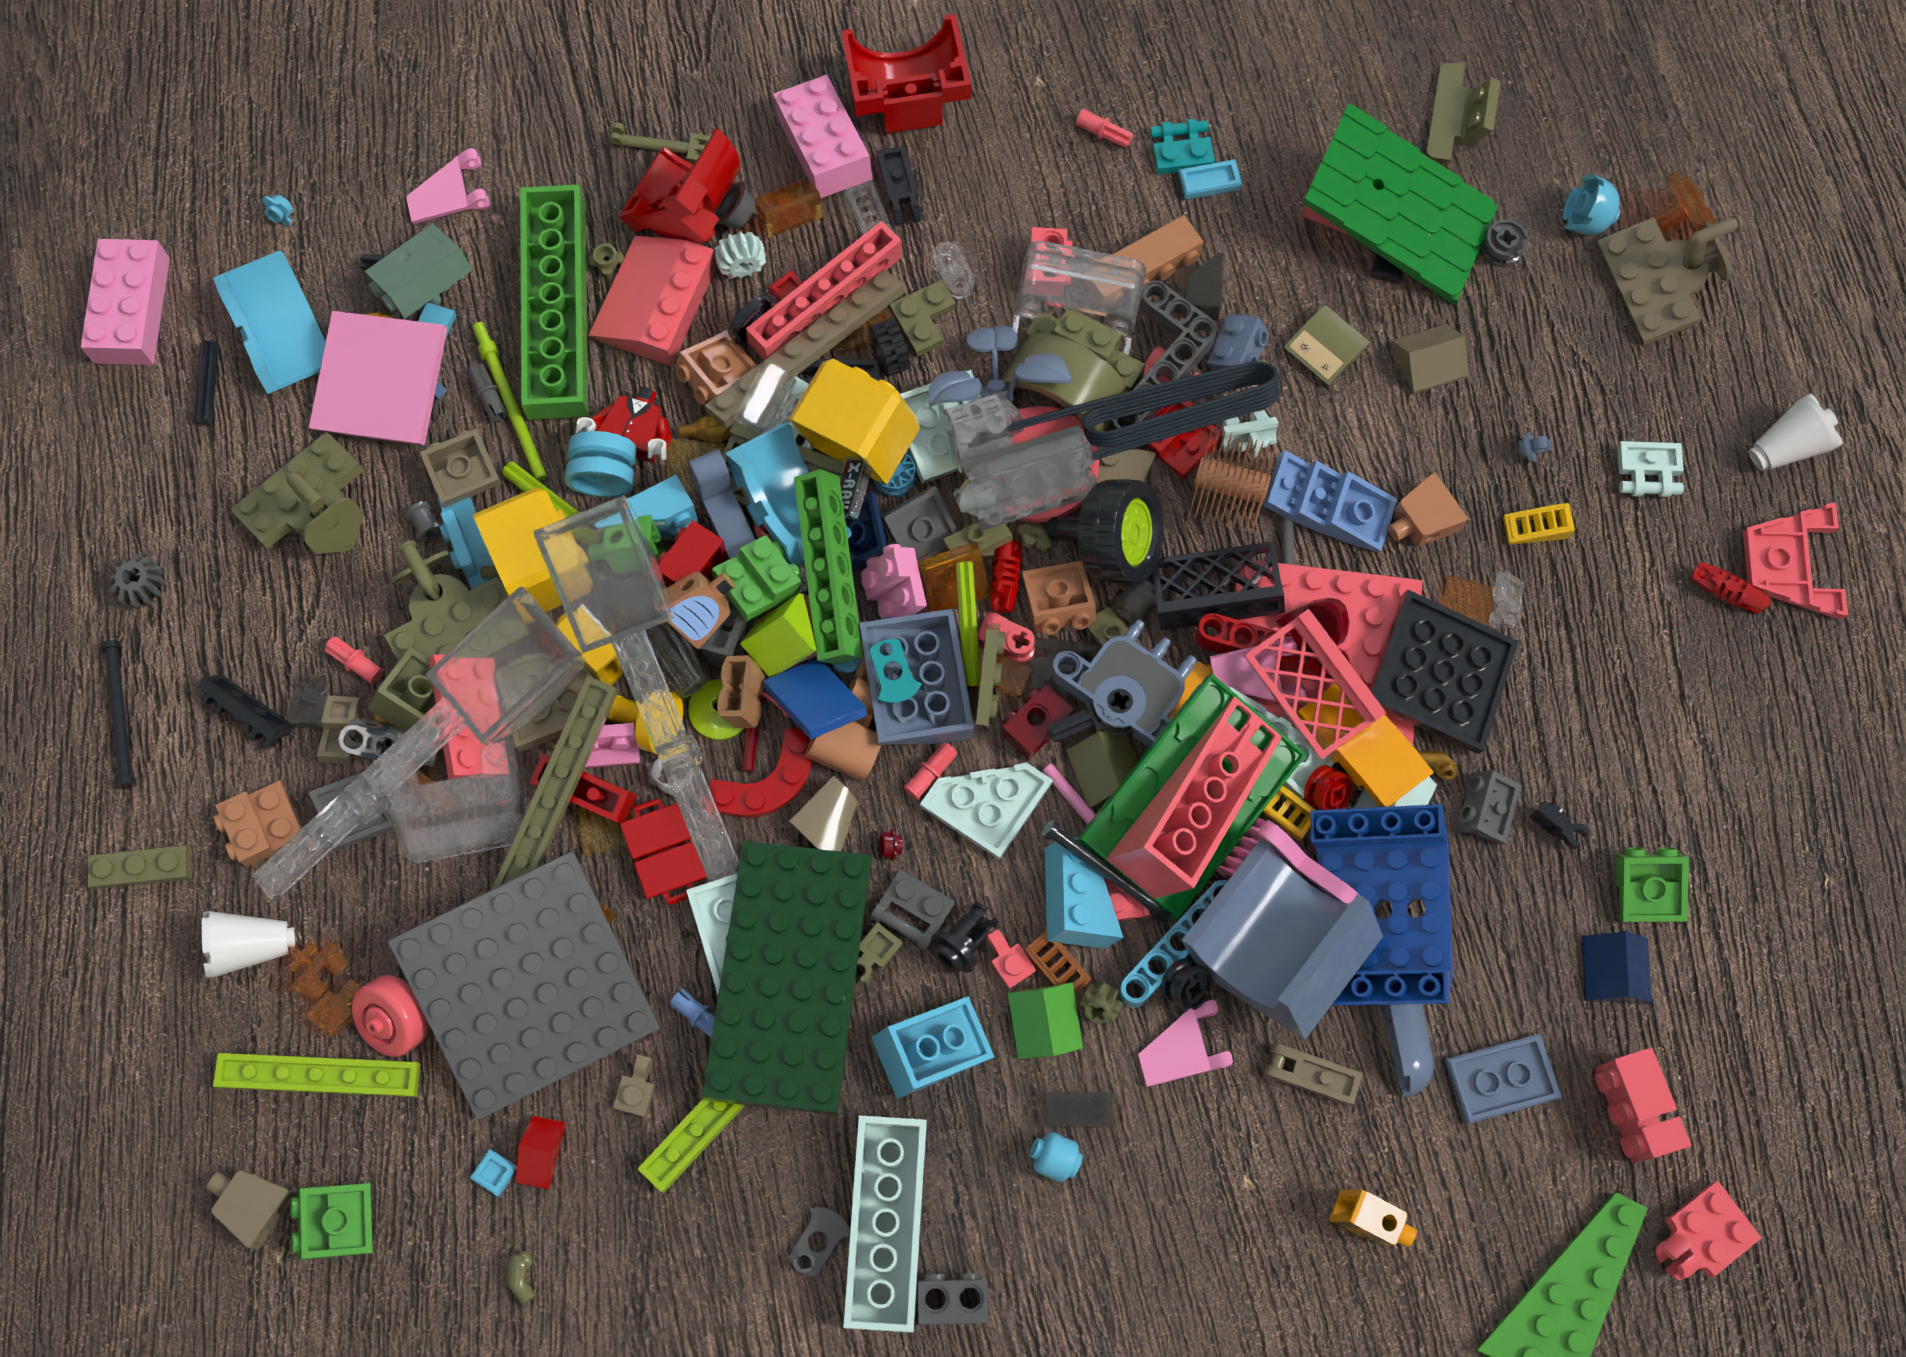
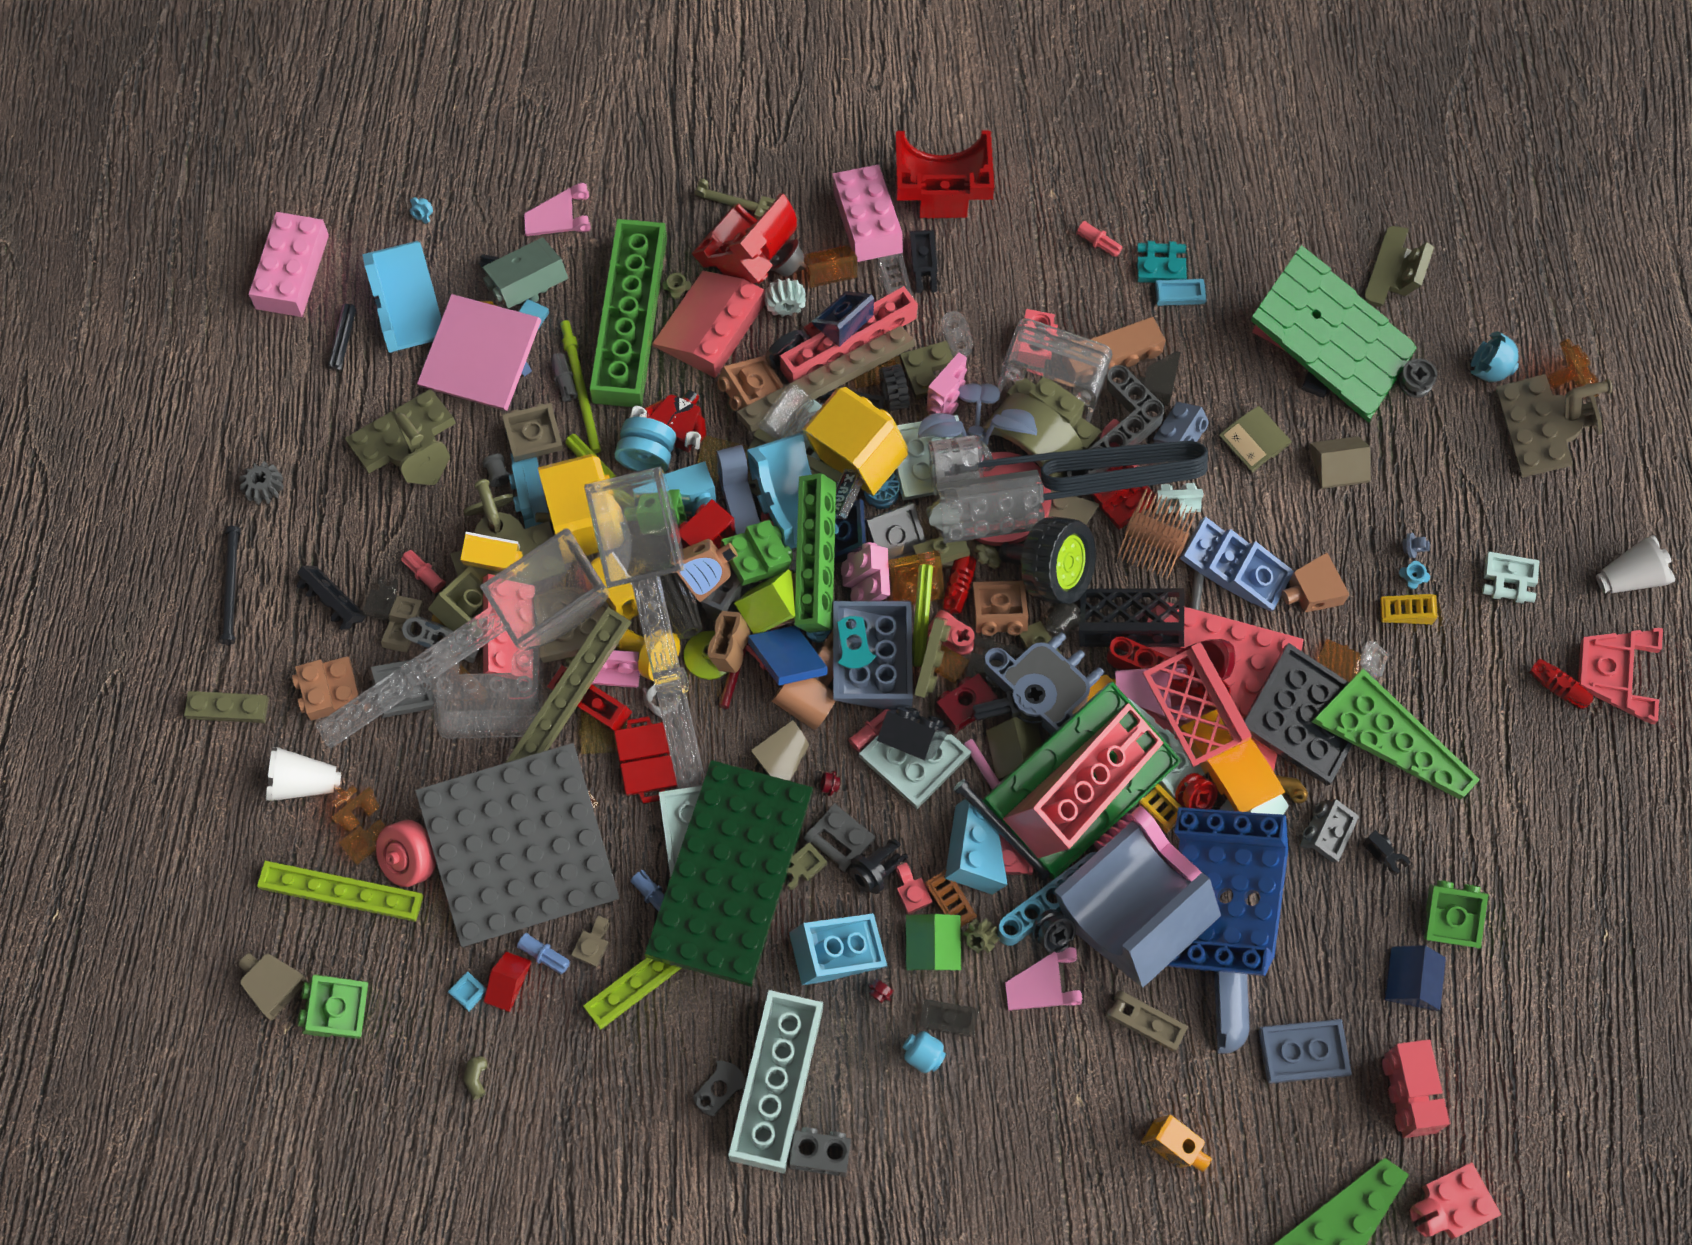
camera: 10 degrees right, 5 degrees down
(431, 628) = (489, 552): none -> yellow piece
(578, 1111) = (543, 953): none -> medium blue axle
(706, 429) = (735, 431): pearl gold piece -> none
(775, 791) = (740, 727): red plate -> none
(817, 268) = (845, 316): none -> dark blue slope
(950, 342) = (944, 389): none -> bright pink plate
(980, 769) = (912, 732): none -> black slope
(991, 1090) = (880, 991): none -> dark red plate
(1533, 673) = (1381, 725): none -> bright green wing
(1543, 475) = (1417, 568): none -> medium azure plate

